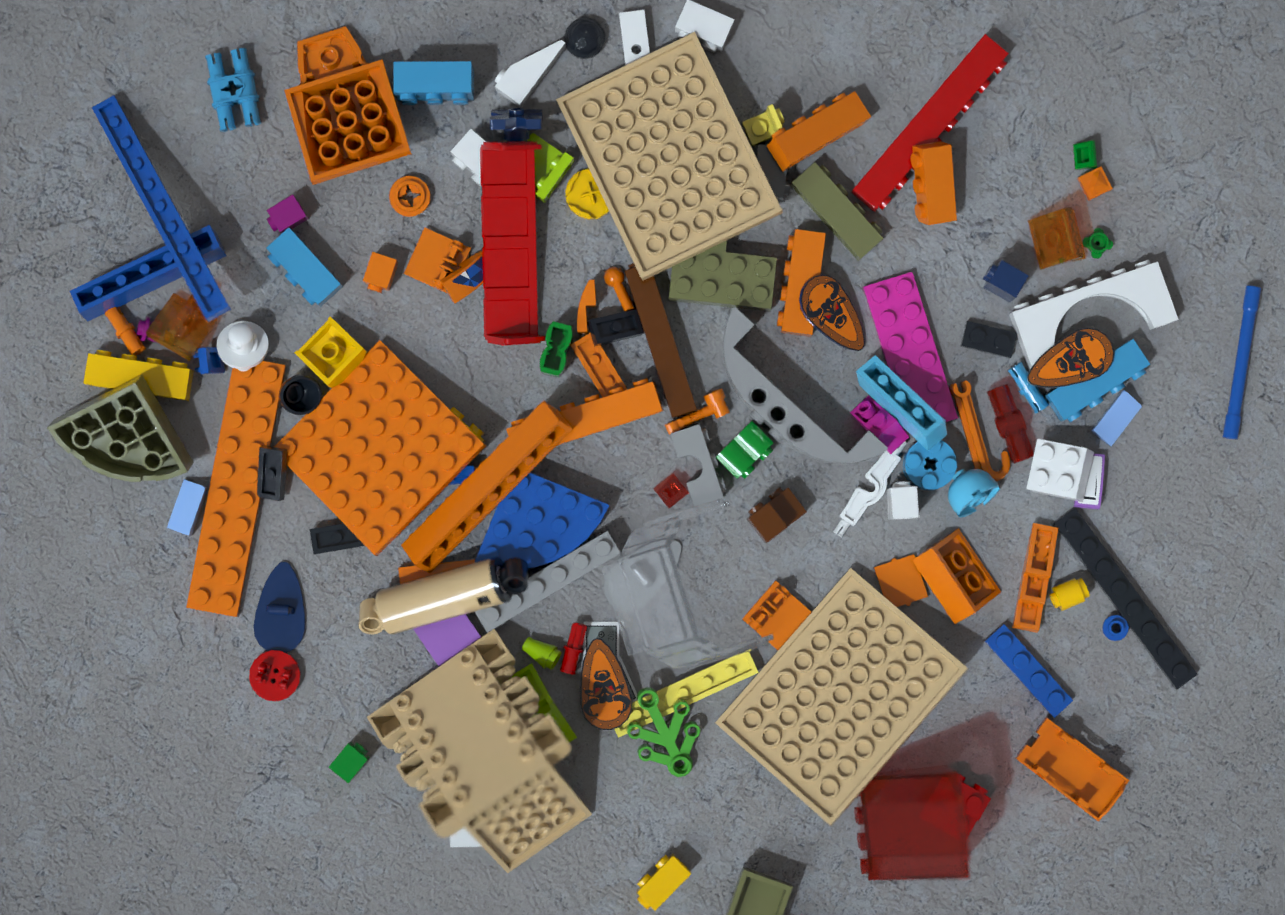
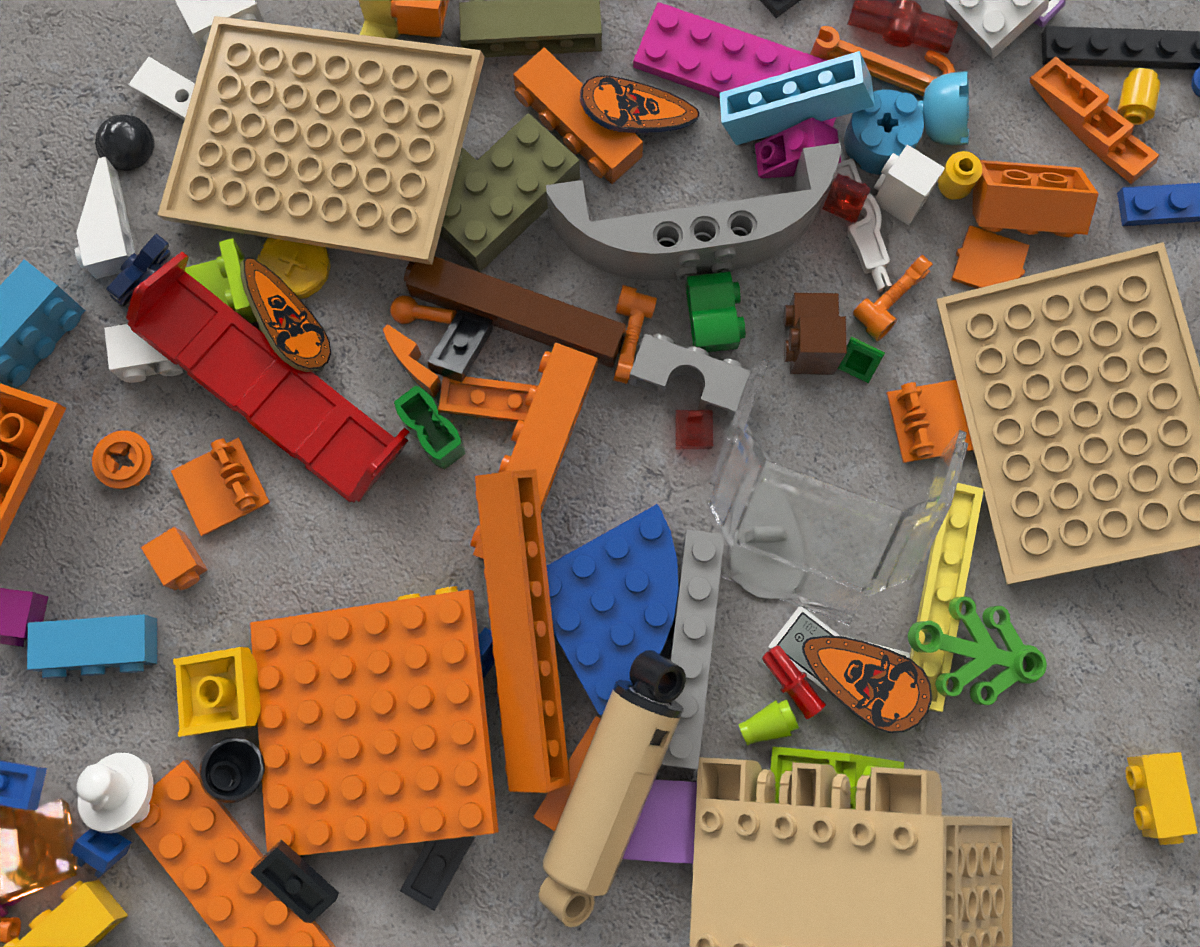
camera: 50 degrees left, 10 degrees down
(465, 279) = (264, 468): orange slope -> none
(553, 221) = (284, 318): none -> shield
(782, 551) = (861, 360): none -> green slope
(815, 541) = (875, 314): none -> orange brick
(868, 474) = (846, 198): none -> clear red tile
(926, 527) = (960, 175): none -> yellow brick

